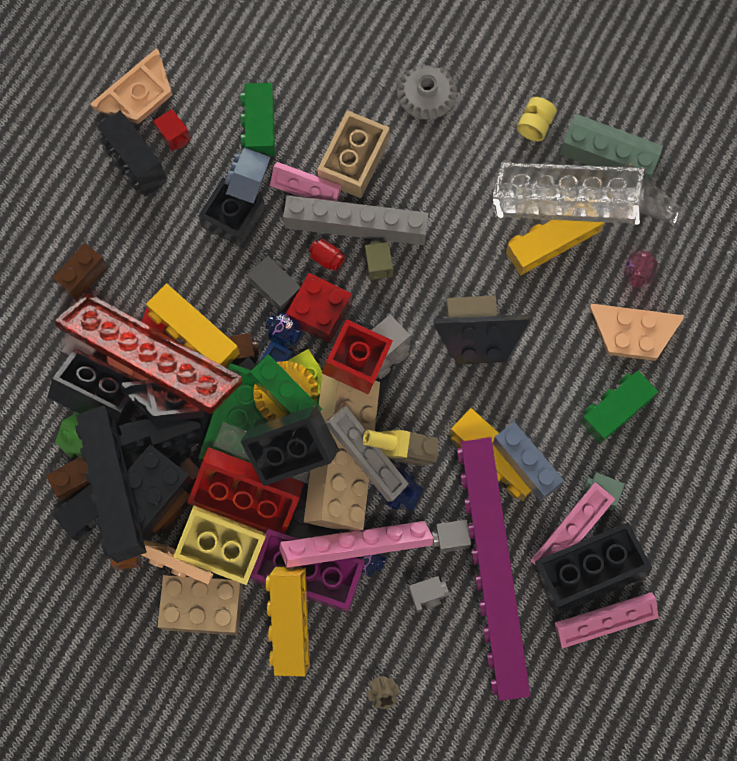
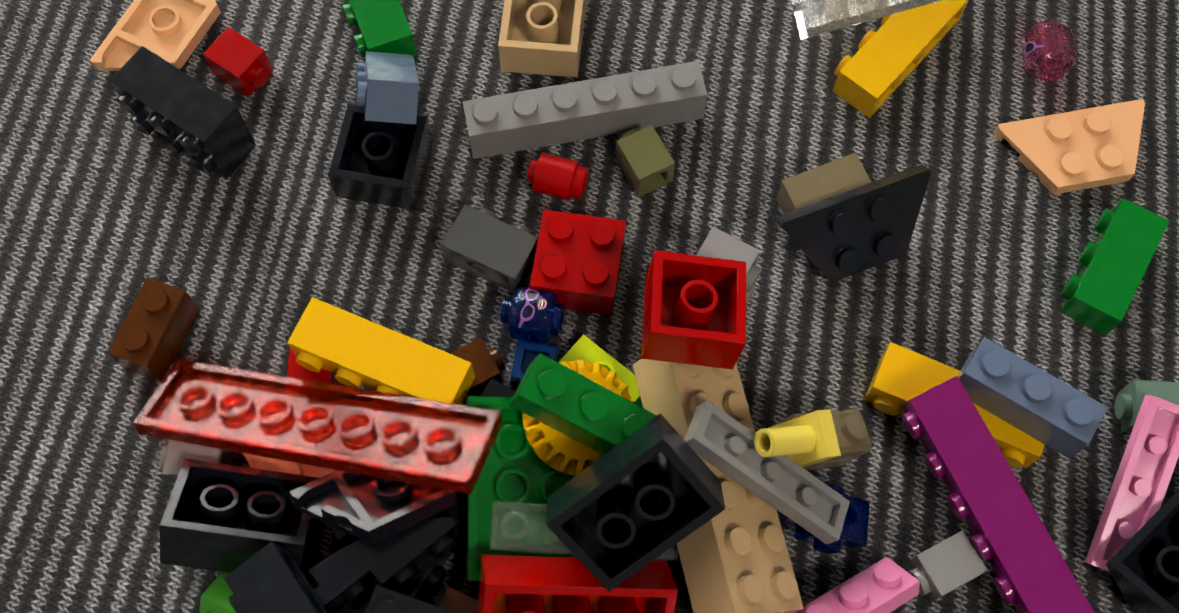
camera: 20 degrees left, 5 degrees down
(303, 183) = (472, 79): bright pink plate -> none

